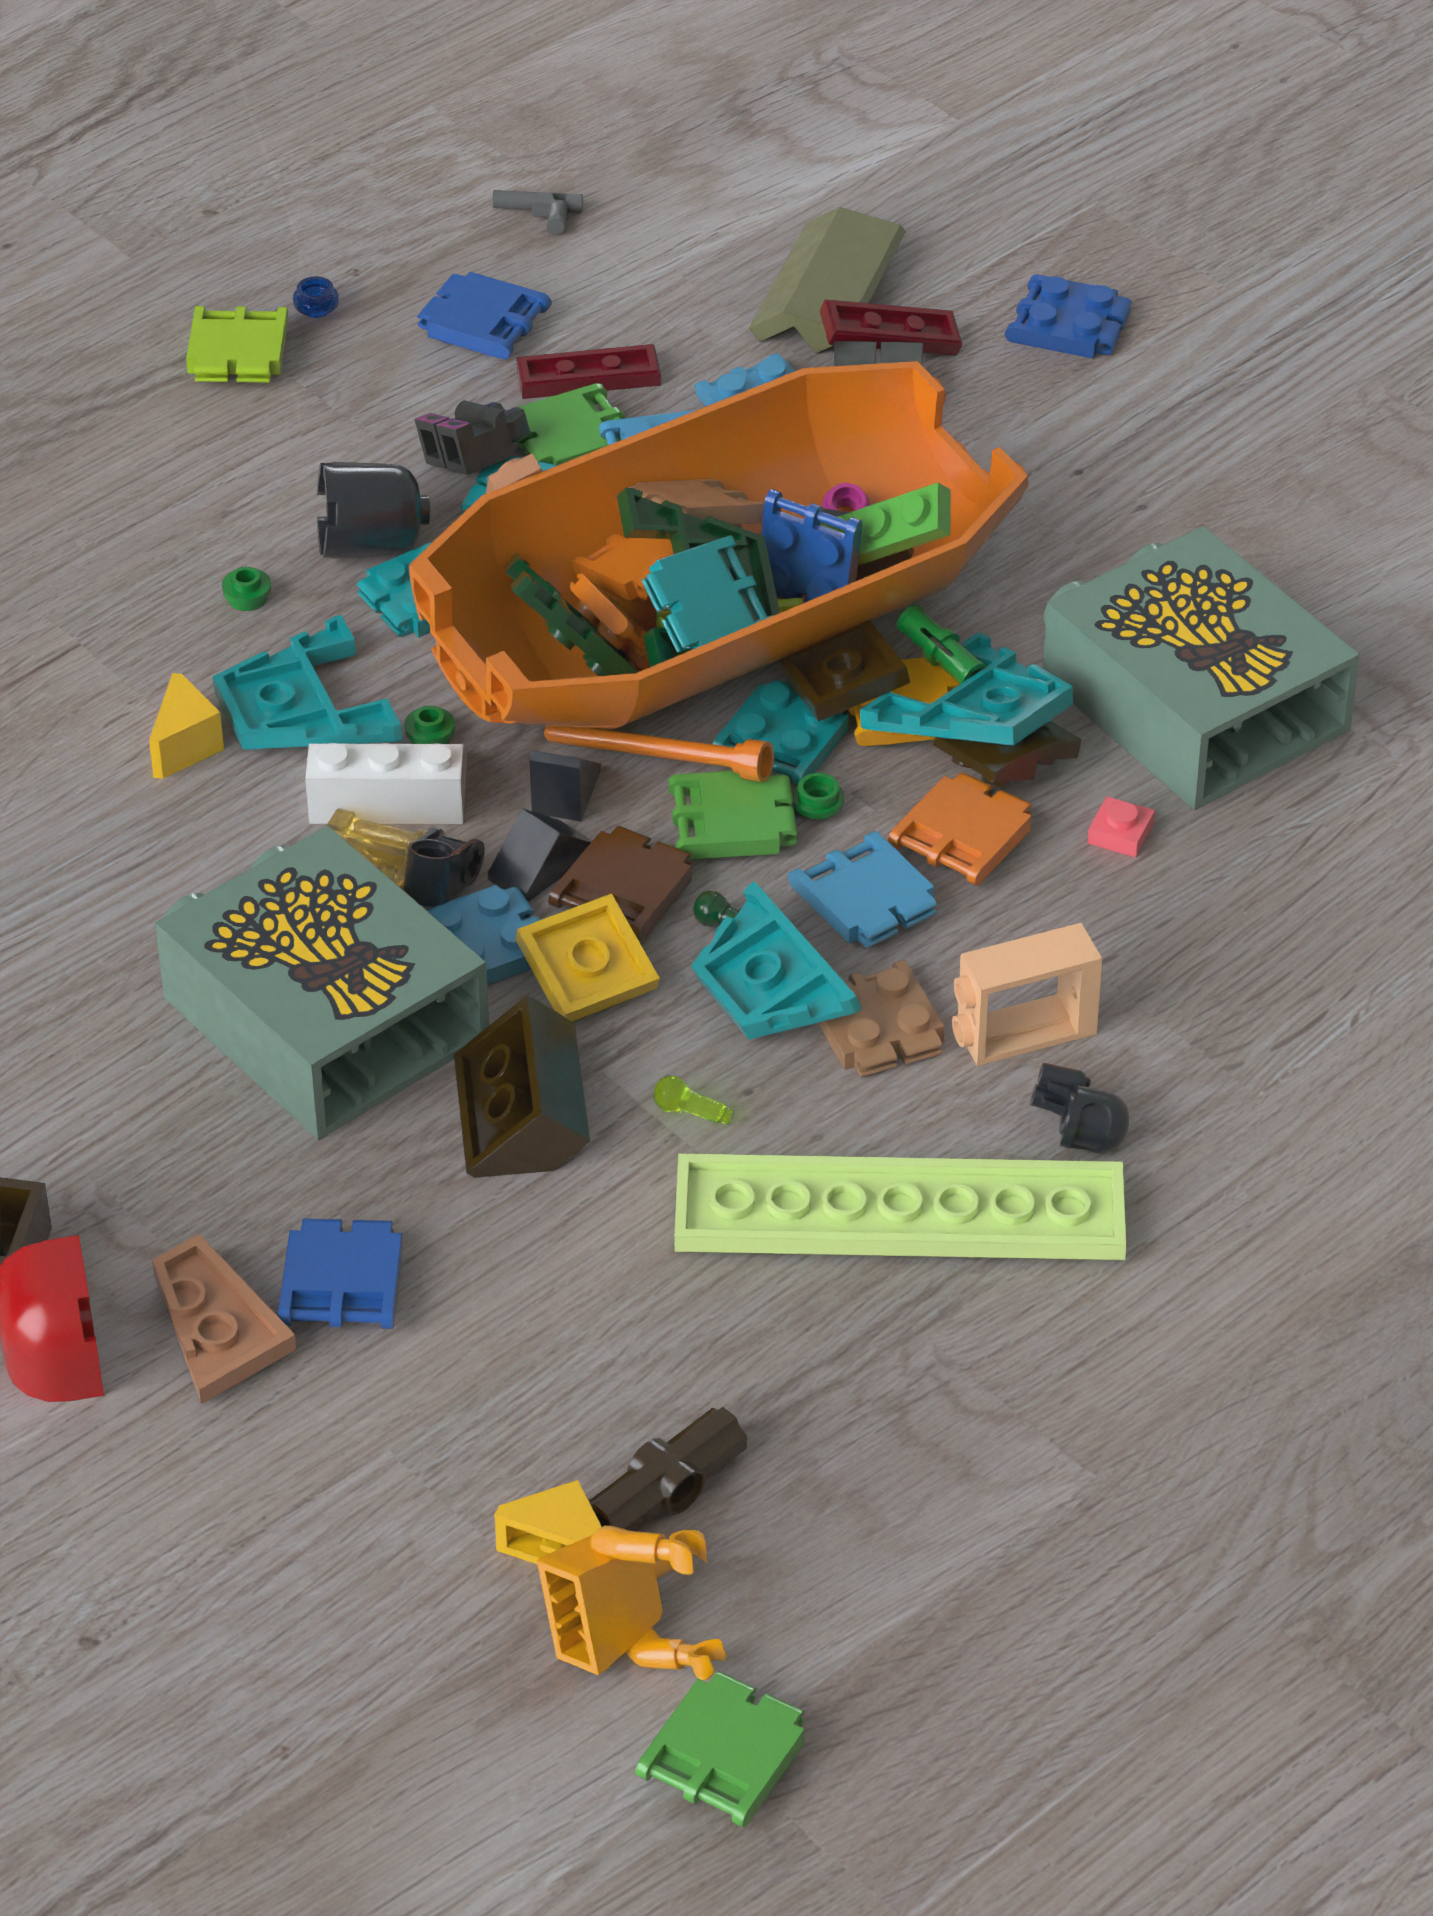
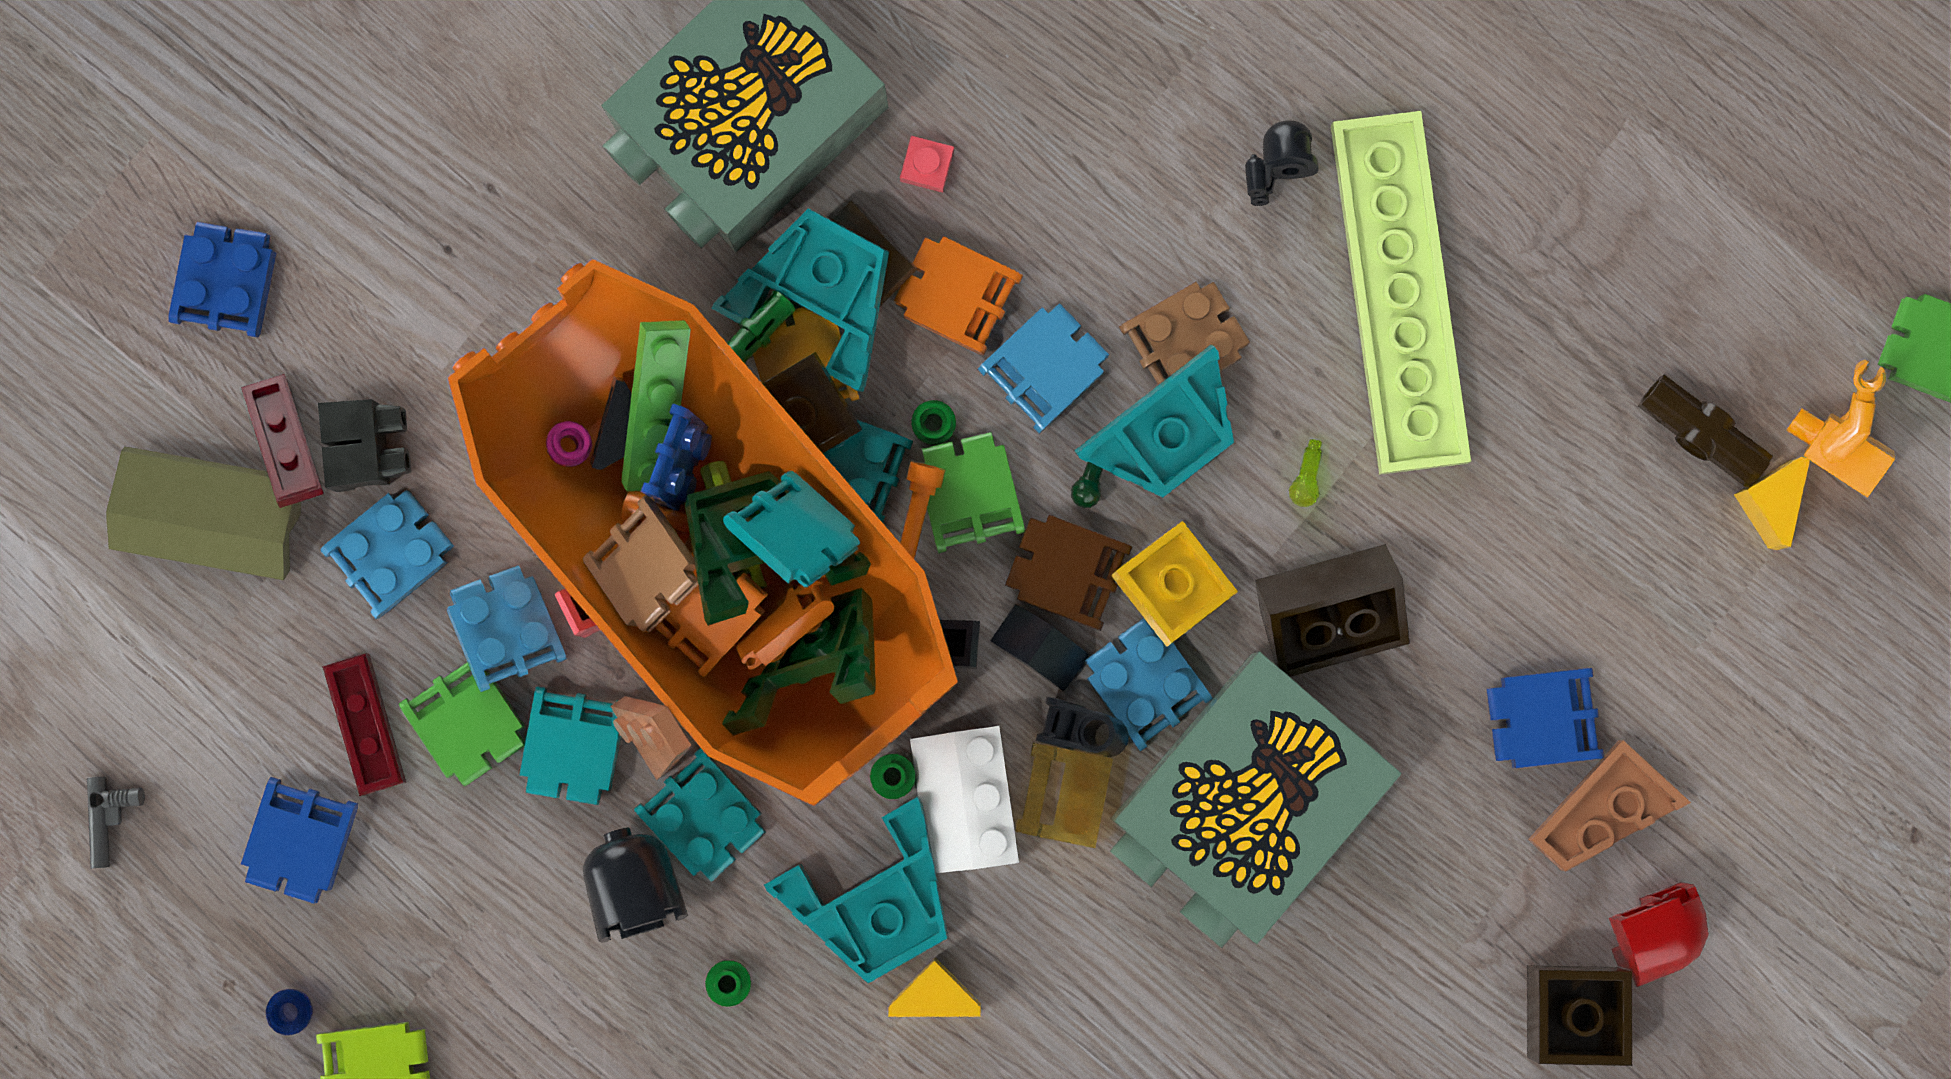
camera: 95 degrees left, 40 degrees up
(472, 439) = (510, 813): pearl dark grey hips -> none
(1036, 1023) = (1177, 210): light nougat window -> none

